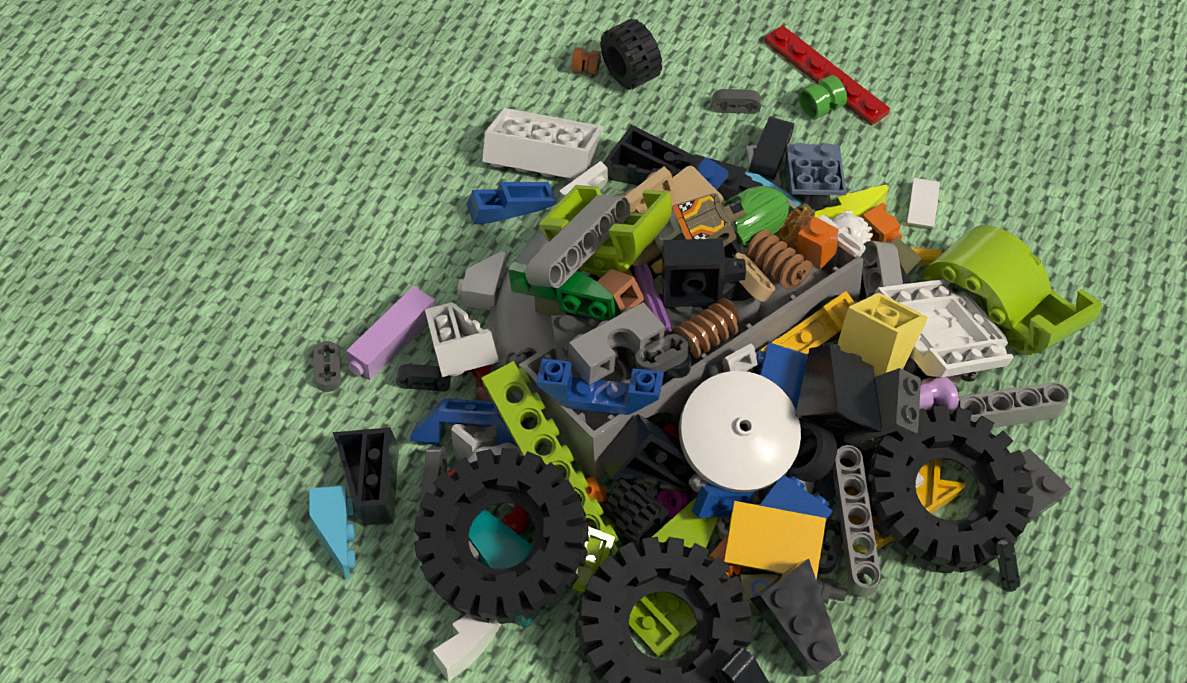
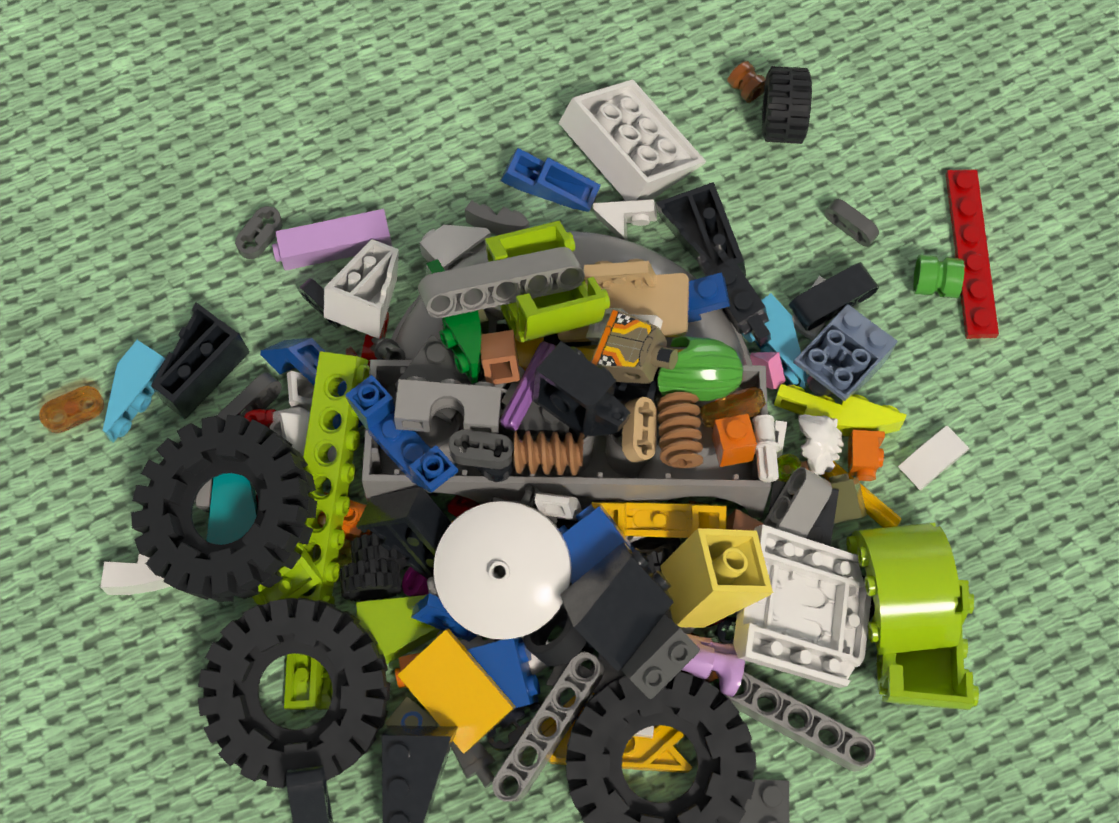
camera: 40 degrees right, 15 degrees up
(296, 577) = (72, 409): none -> clear orange plate
(509, 241) = (502, 223): none -> light grey slope

